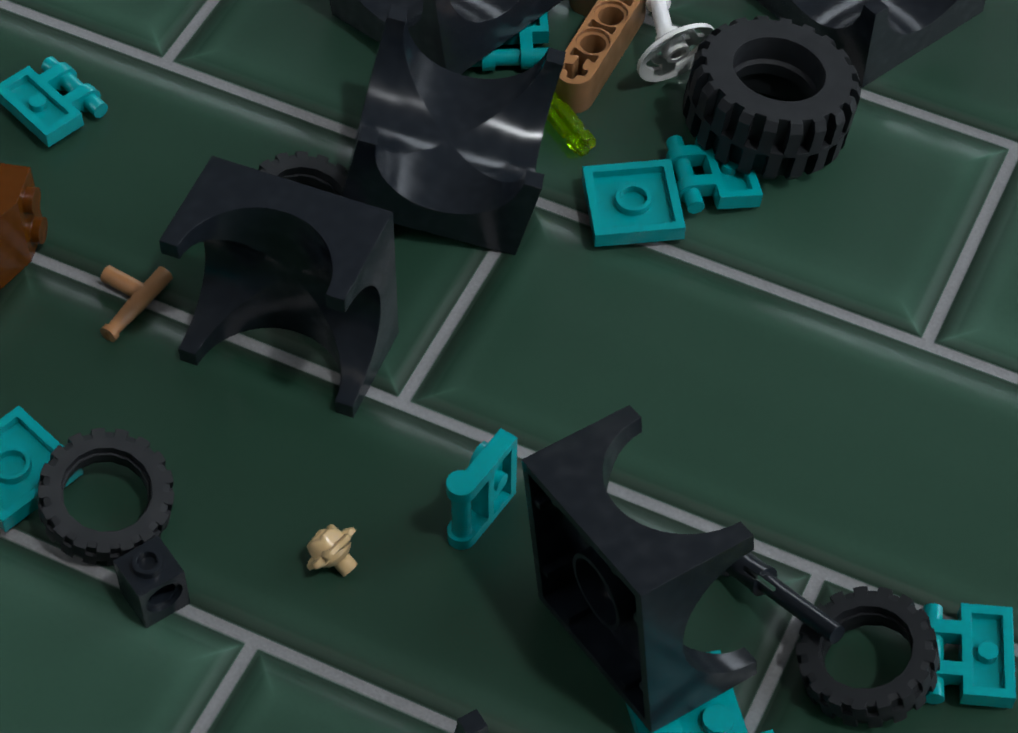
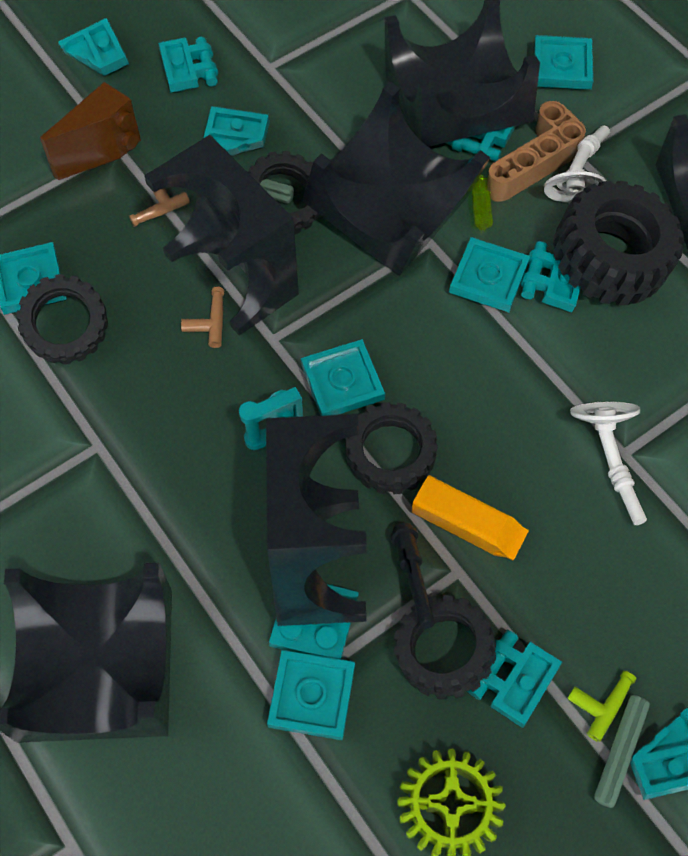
camera: 30 degrees right, 10 degrees up
(152, 581) = (56, 383): black brick -> none
(173, 162) = (237, 129): none -> teal wing
(312, 414) = (211, 325): none -> medium nougat piece
(331, 548) = (169, 412): tan plant -> none
(531, 403) = (342, 378): none -> teal plate
(678, 498) = (394, 480): none -> black tyre
(797, 499) = (469, 518): none -> light orange piece
(884, 309) = (605, 421): none -> white dish

